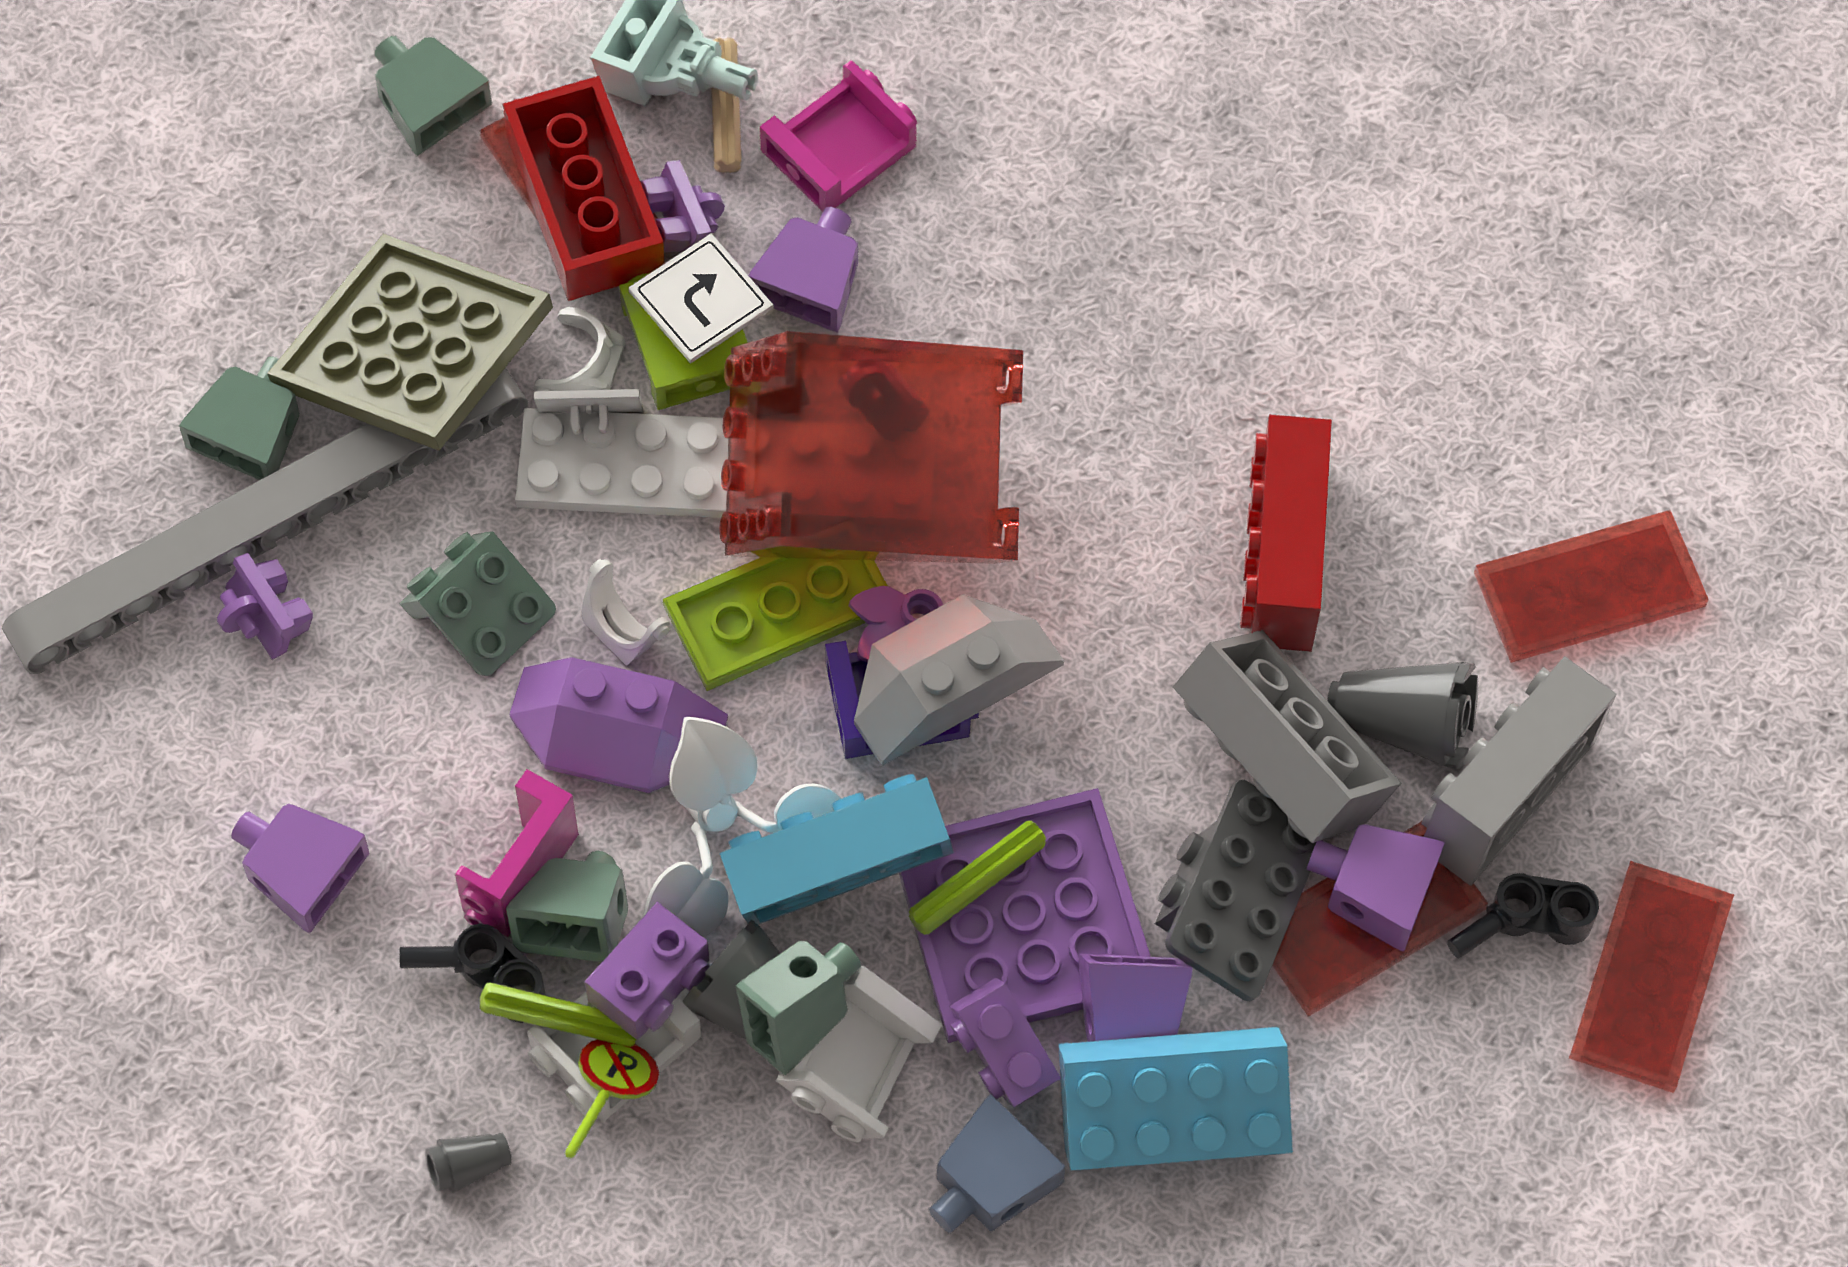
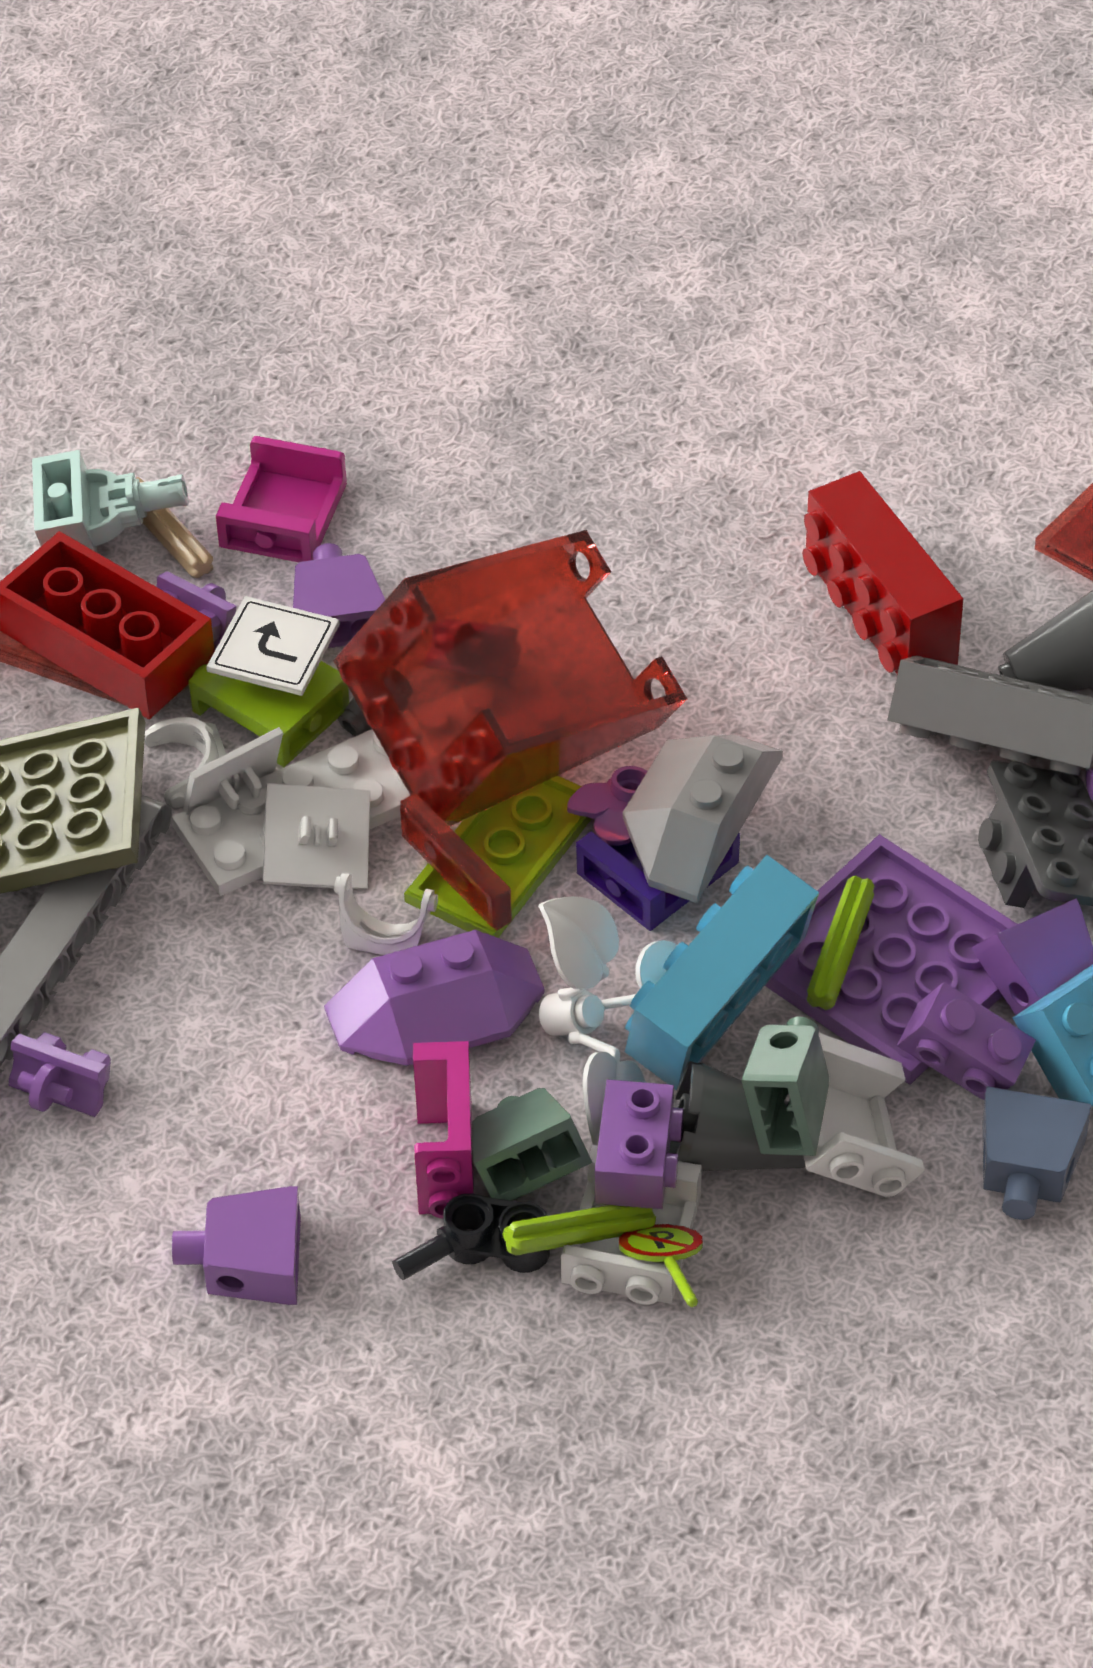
camera: 30 degrees left, 15 degrees down
(466, 1160) = (580, 1393): dark grey cone -> none
(480, 601) = (247, 968): sand green bracket -> none
(624, 502) = (315, 835): none -> white piece
(712, 600) = (455, 862): none -> clear red tile

